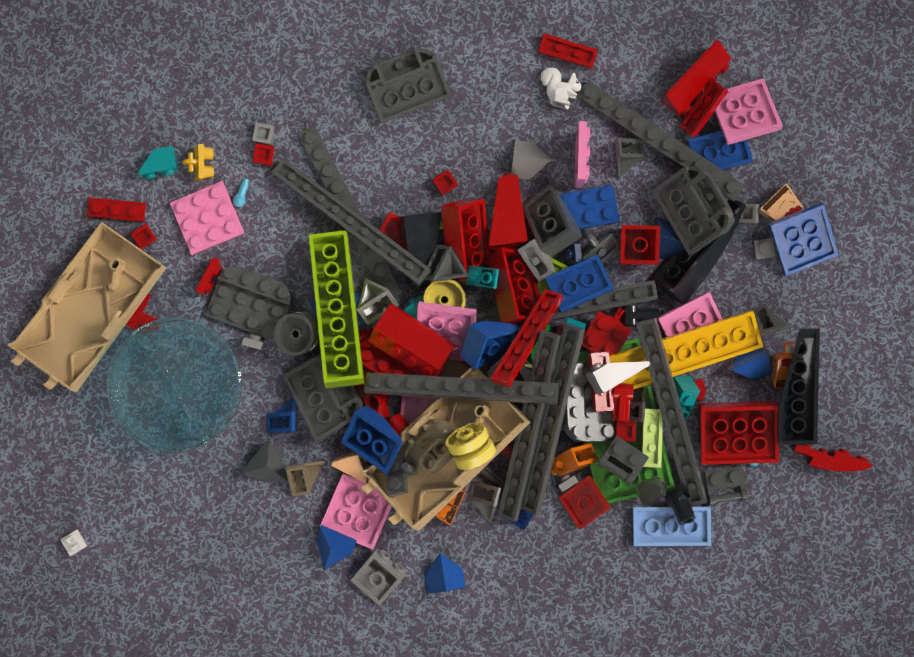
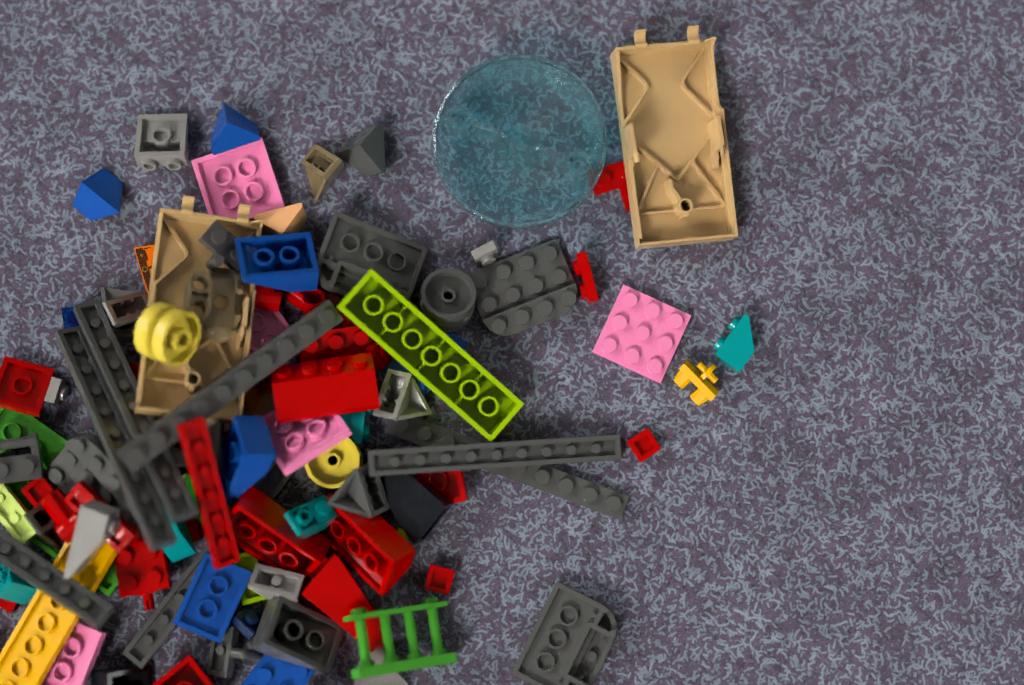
camera: 135 degrees right, 0 degrees up
(116, 209) = (736, 263): red plate -> none
(144, 236) = (685, 260): red plate -> none
(239, 199) = (627, 380): medium azure piece -> none
(263, 133) = (663, 465): light grey plate -> none
(283, 419) = (389, 207): blue slope -> none
(510, 158) = (391, 662): none -> bright green fence
(567, 462) = (69, 409): orange torso -> none
(634, 314) = (131, 617): black piece -> none

